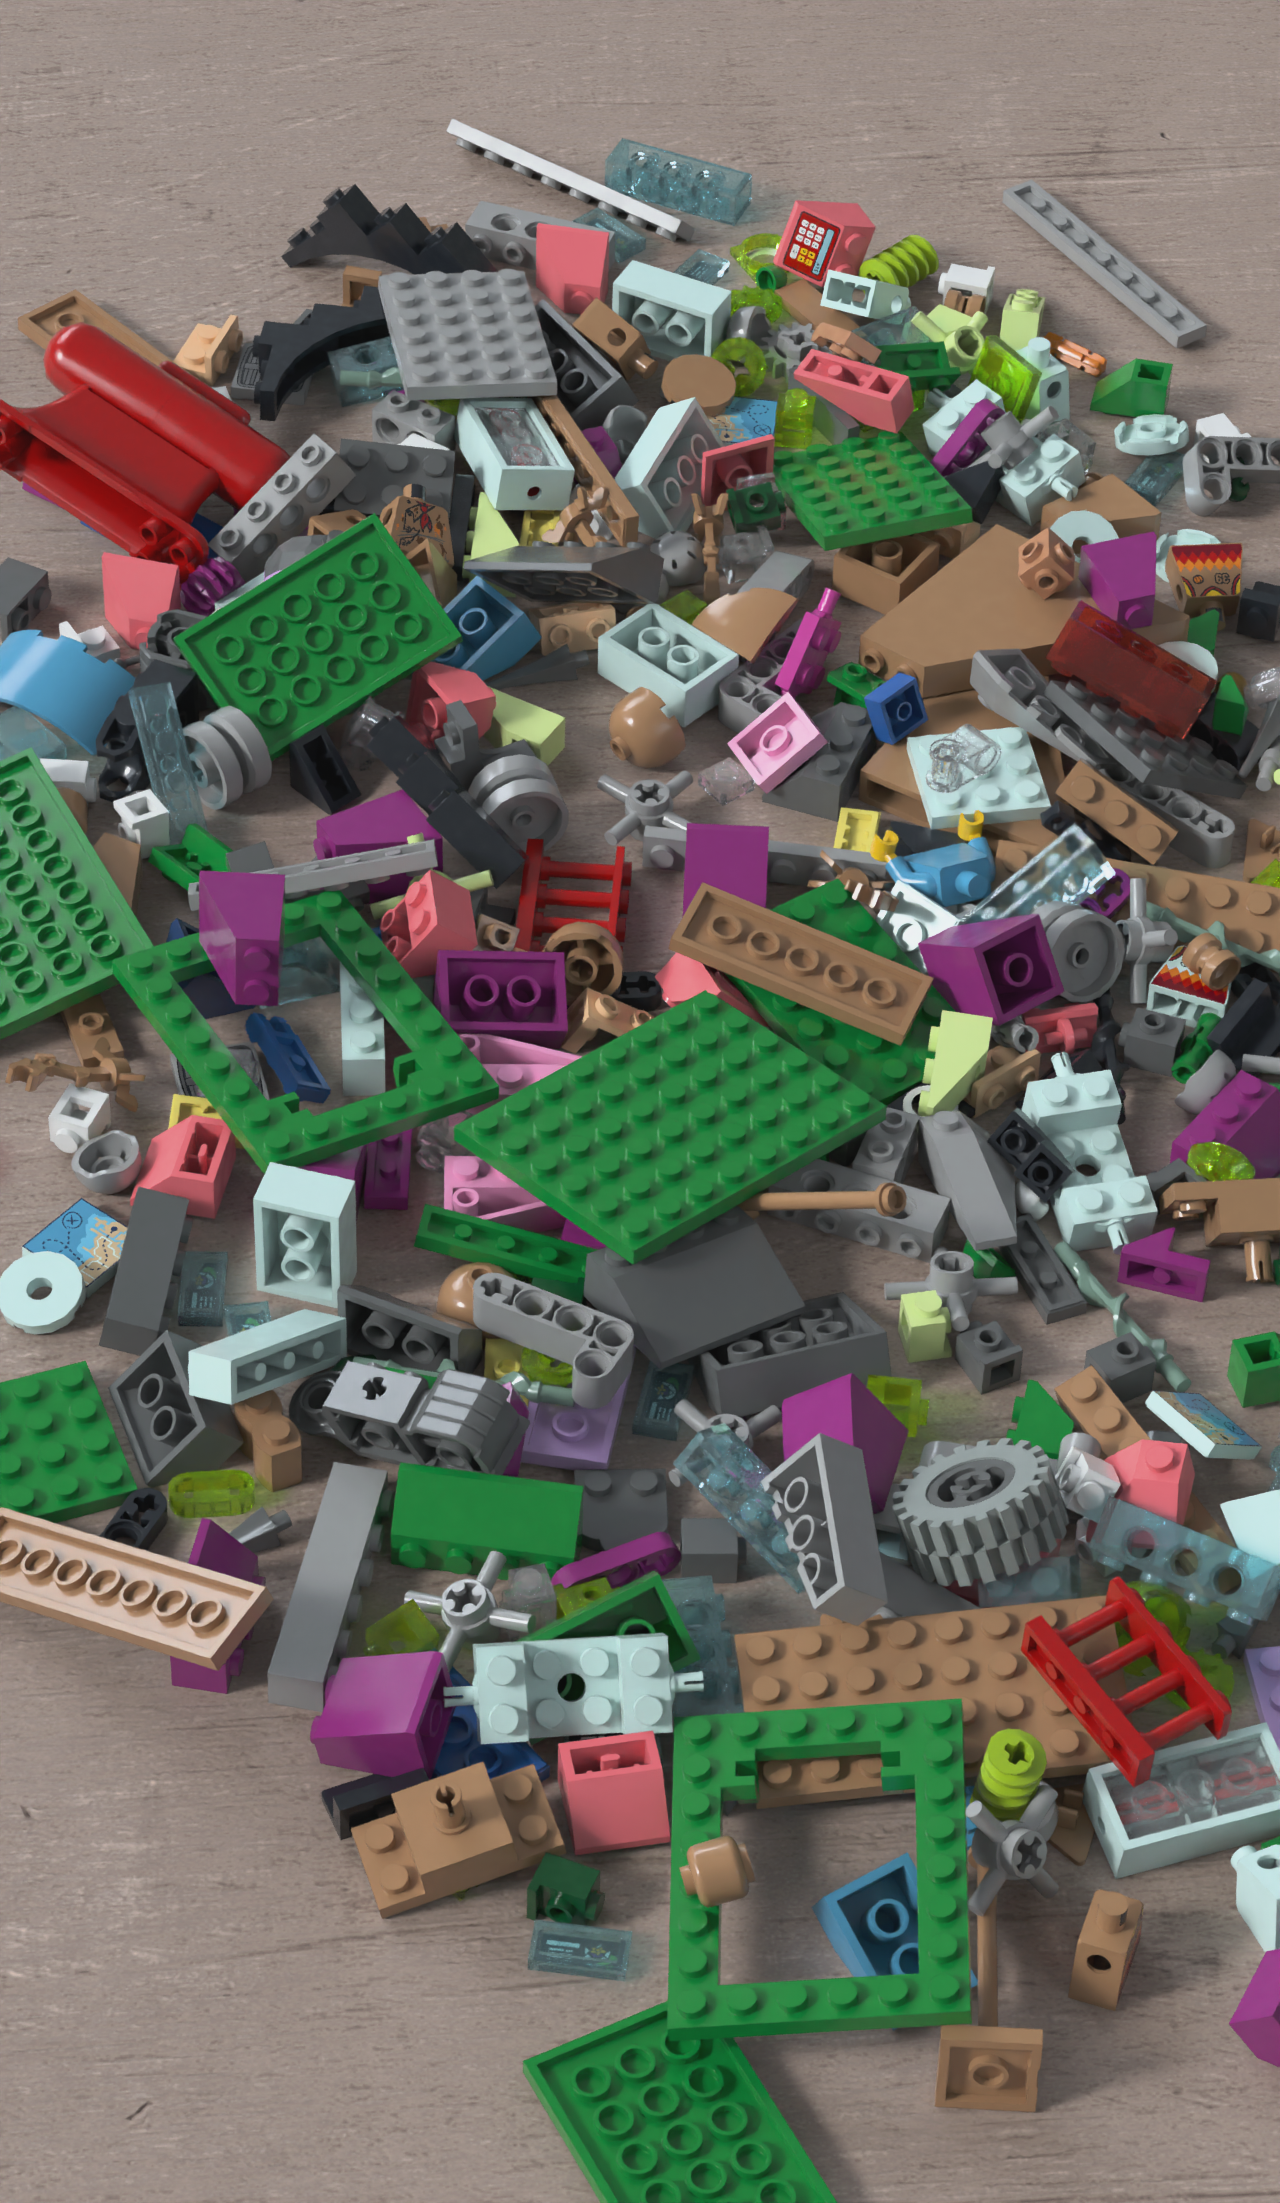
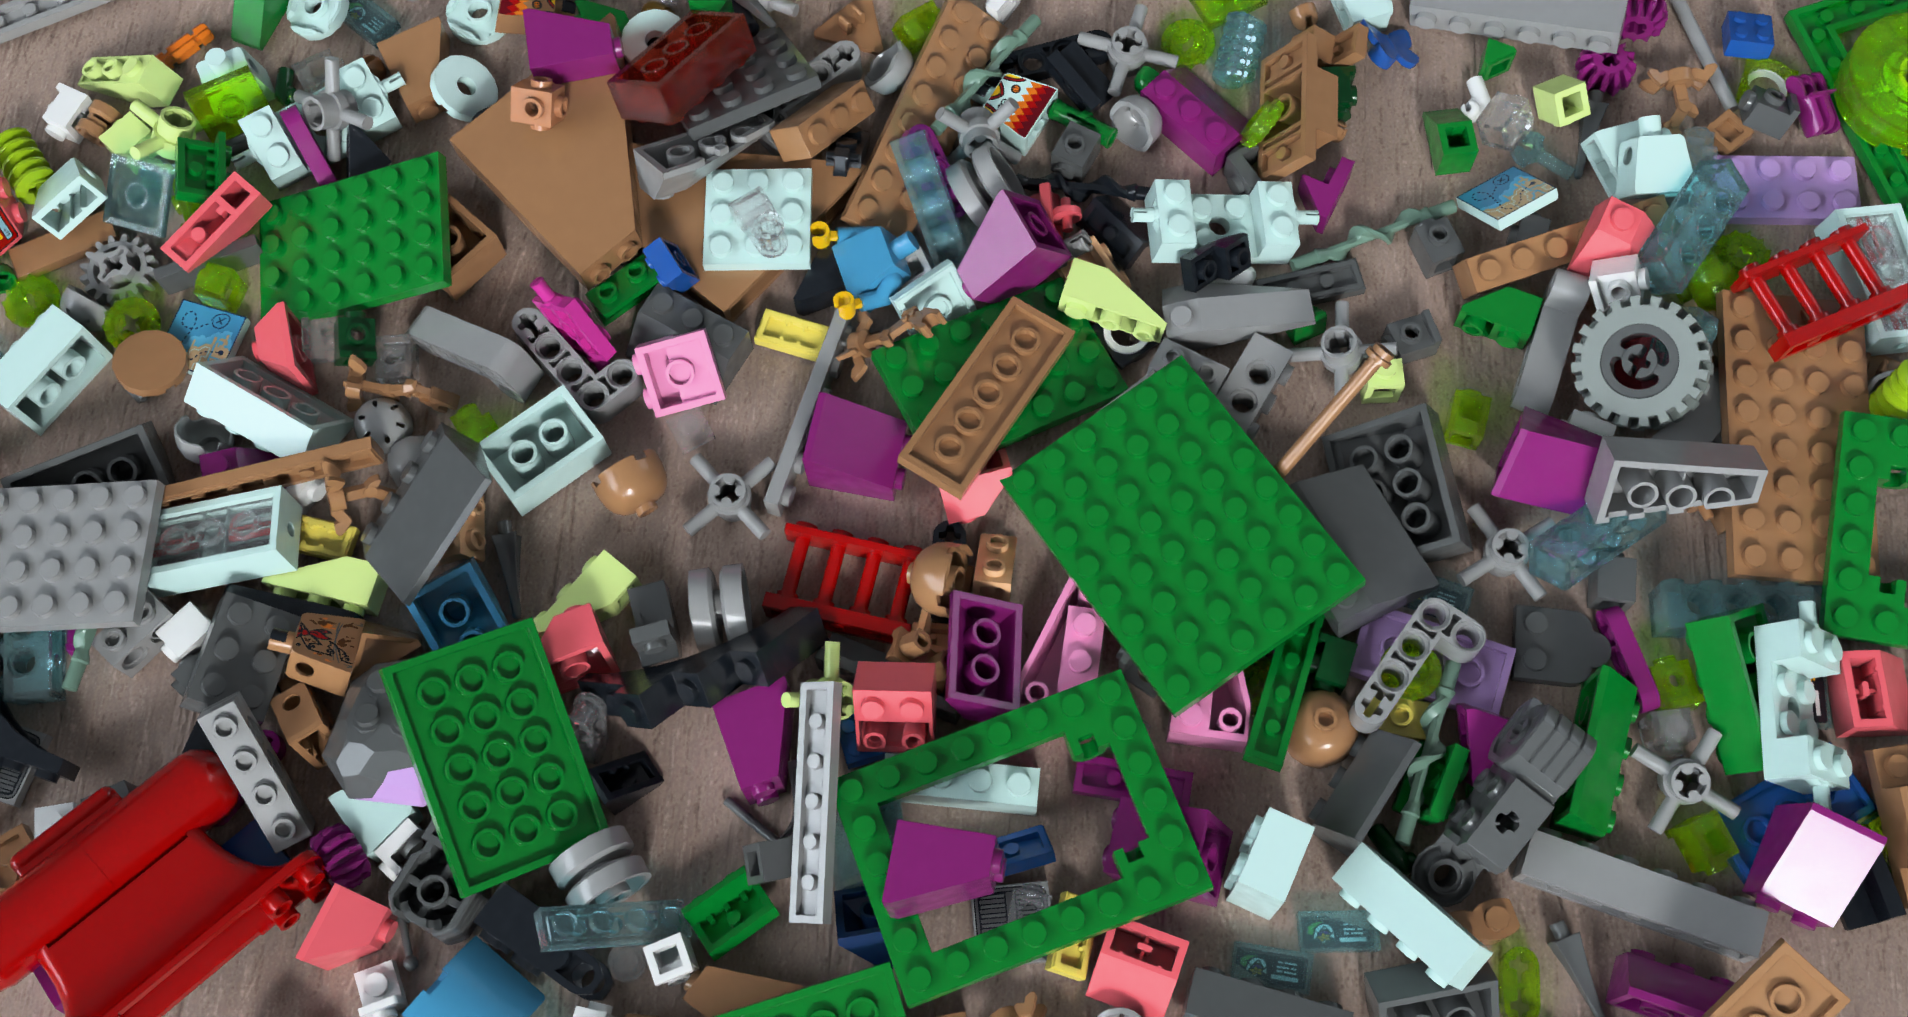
camera: 75 degrees left, 25 degrees up
(616, 341) = (59, 436): medium nougat torso -> none
(746, 619) = (526, 369): medium nougat brick -> none
(845, 343) = (155, 220): nougat plate -> none
(1214, 964) = (1023, 84): medium nougat wheel -> none
(1215, 866) = (890, 69): none -> light grey helmet

